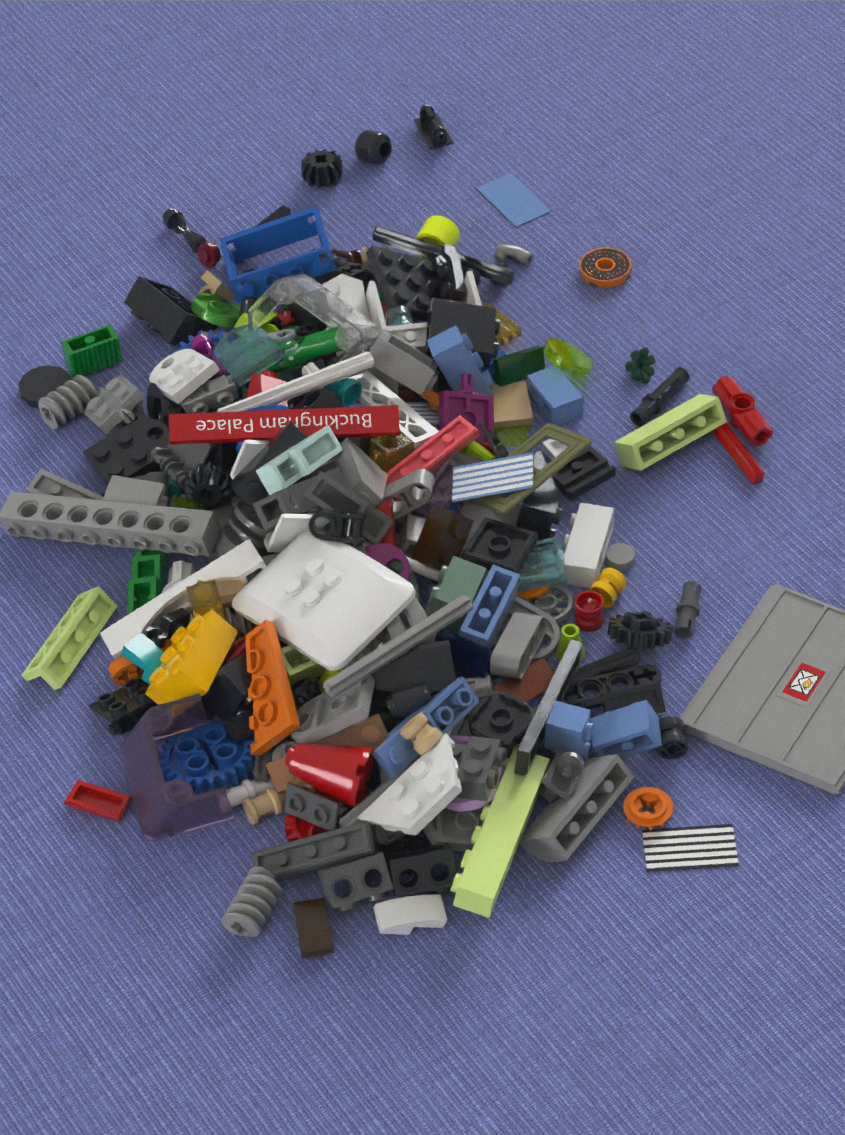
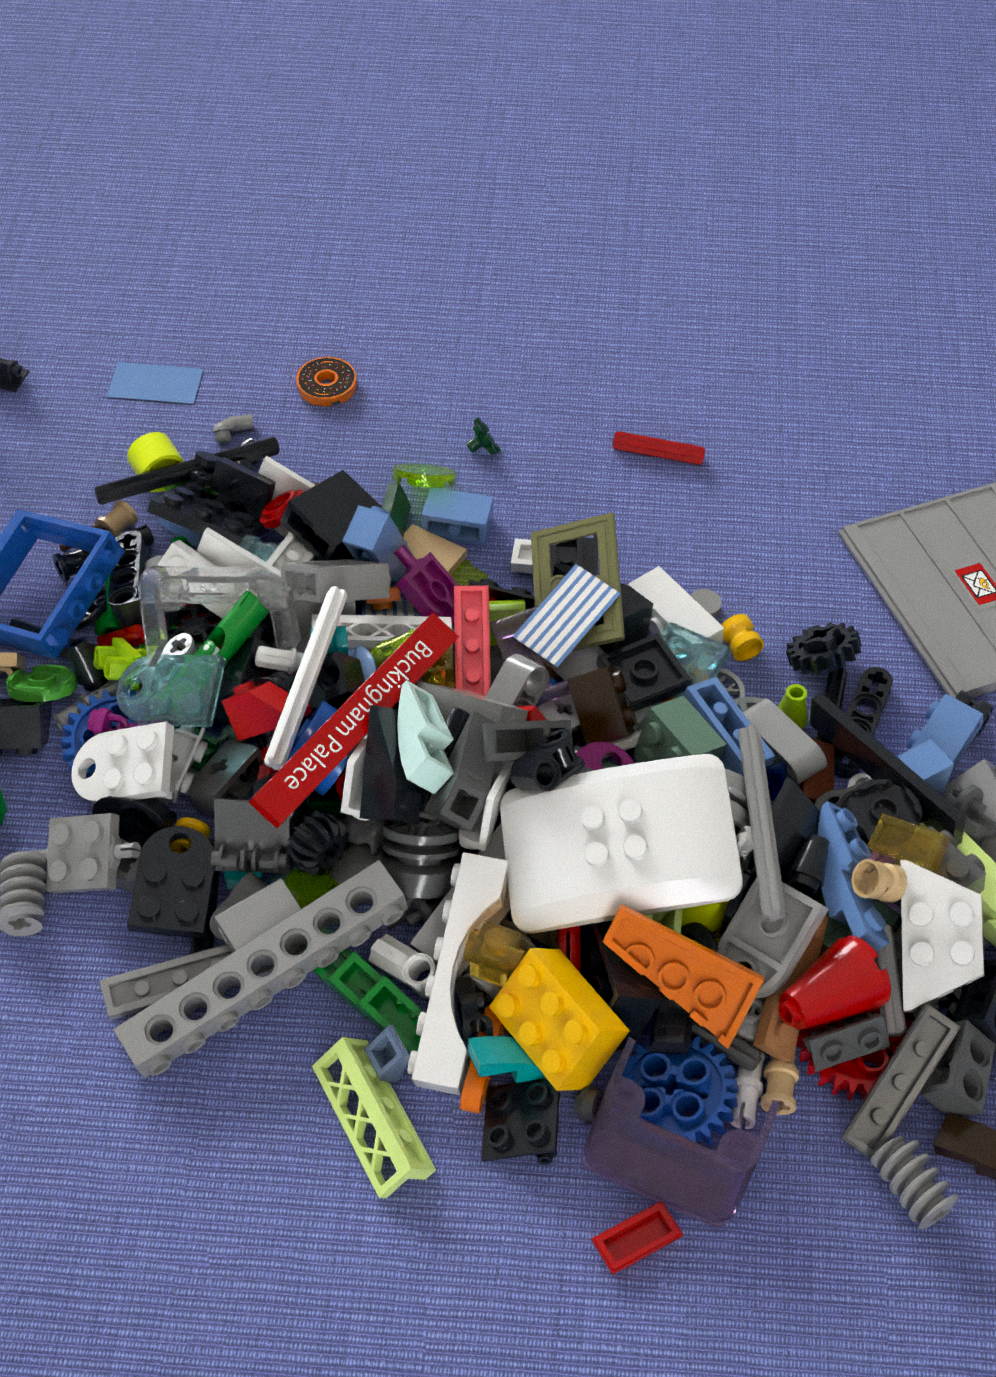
camera: 55 degrees left, 5 degrees up
(109, 615) = (388, 1055): none -> sand blue slope
(469, 733) = (908, 842): none -> clear yellow tile
(588, 611) = (758, 668): red wheel -> none
(622, 698) = (901, 715): black hinge -> none
(643, 412) = (538, 459): black pin -> none
(670, 432) = (596, 467): yellowish green brick -> none
(688, 609) = (819, 600): dark grey pin -> none
(742, 411) = (616, 411): red piece -> none

